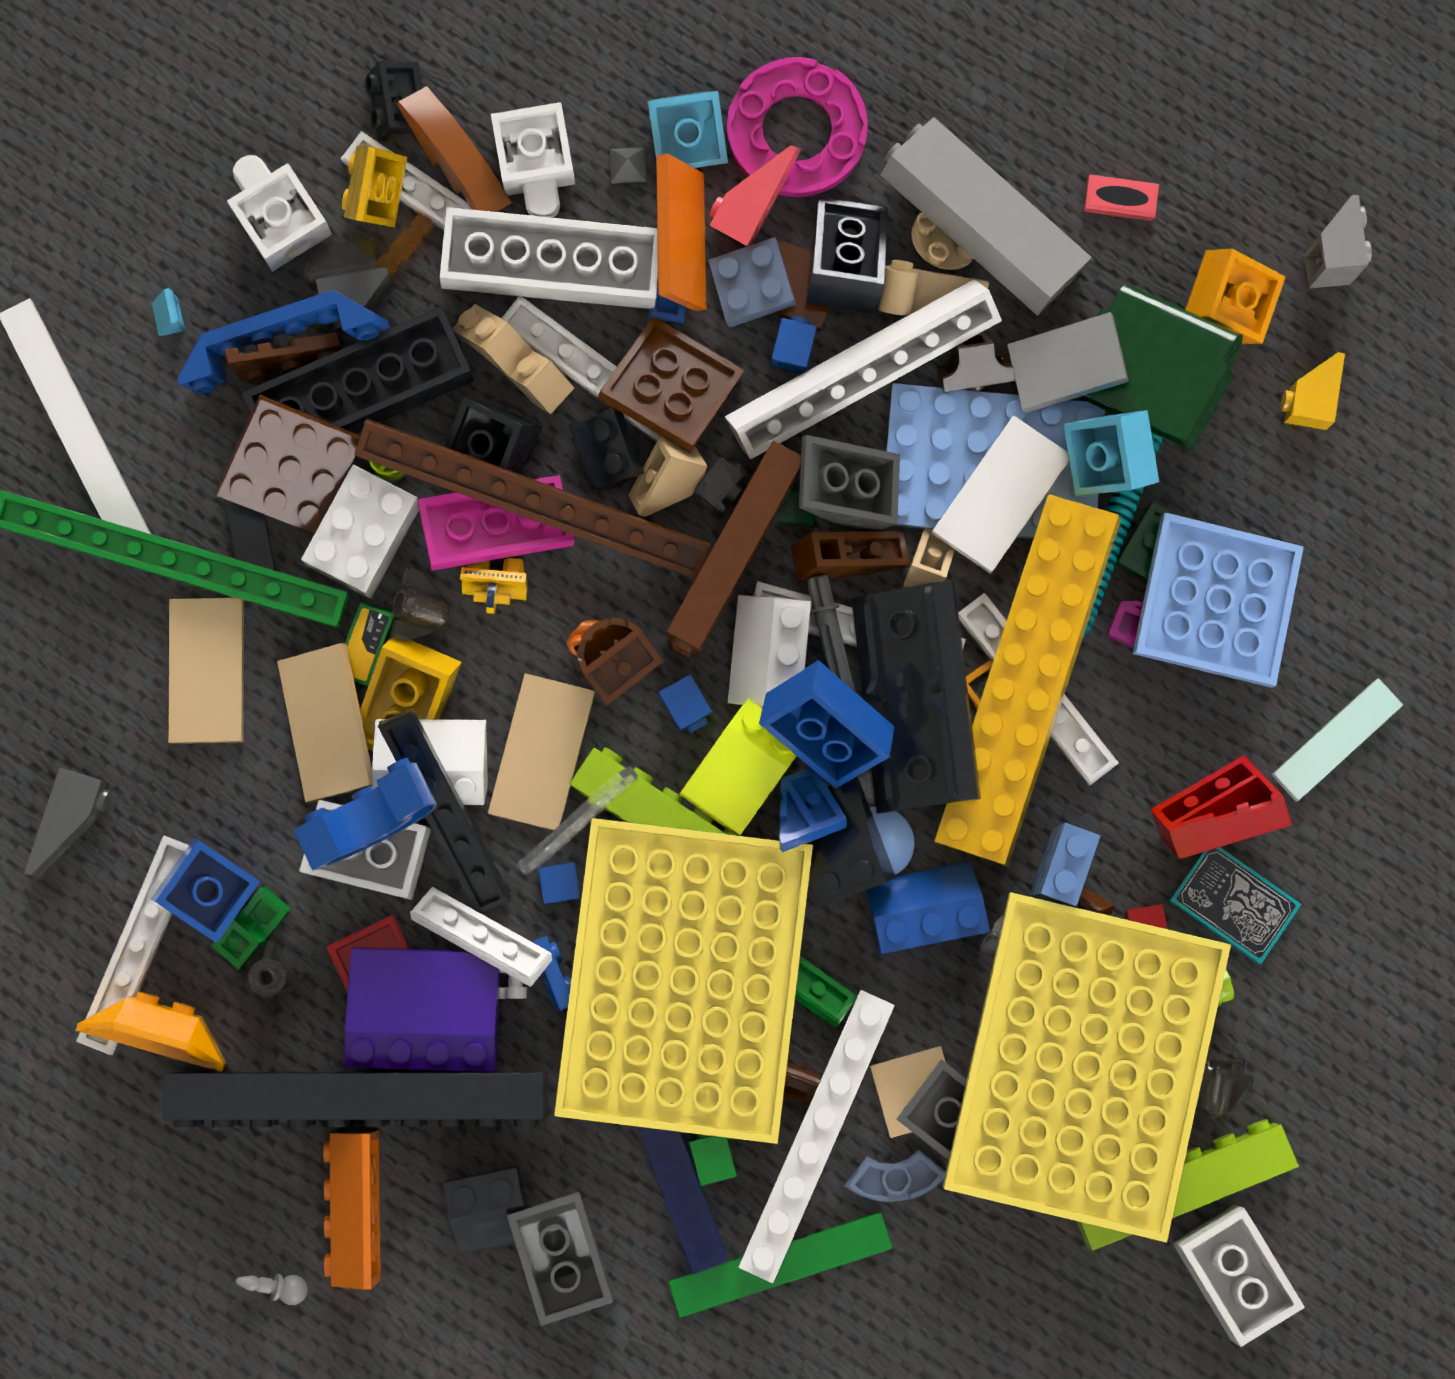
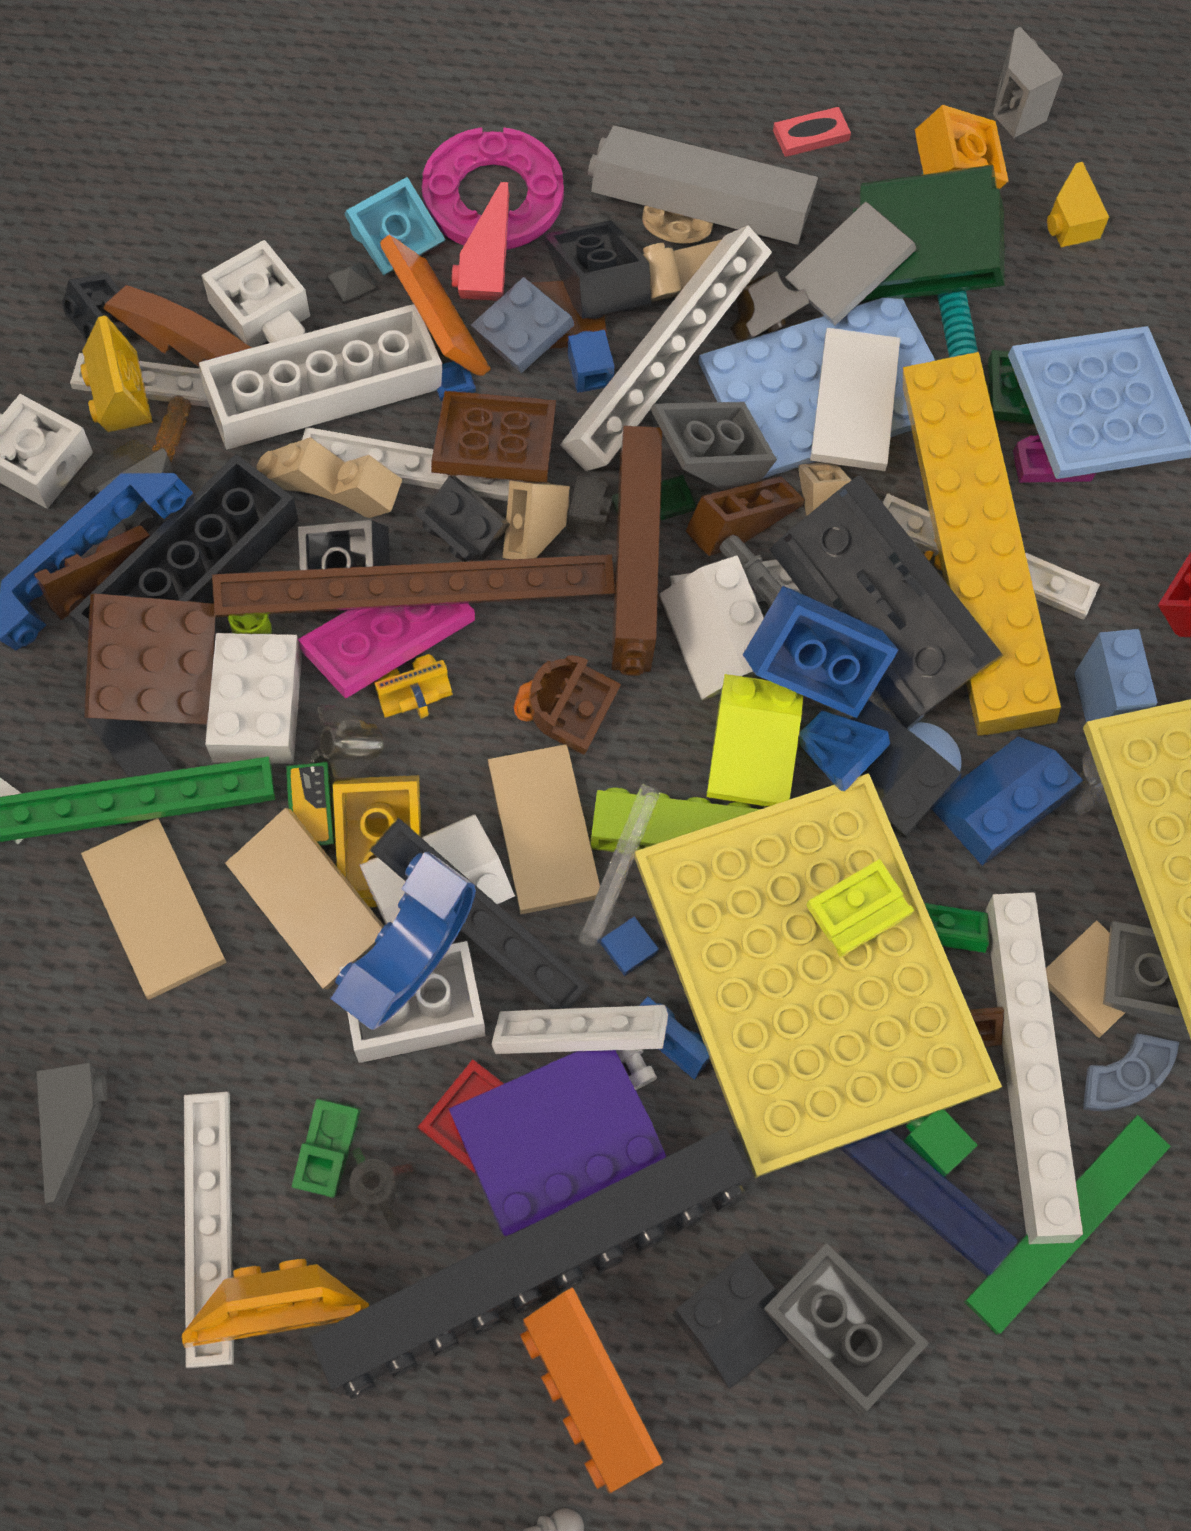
camera: 25 degrees left, 15 degrees down
(205, 890) = (259, 1124): blue brick -> none
(686, 705) = (665, 714): blue brick -> none
(740, 953) = (859, 907): none -> neon yellow plate
(1111, 453) = (937, 311): medium azure brick -> none

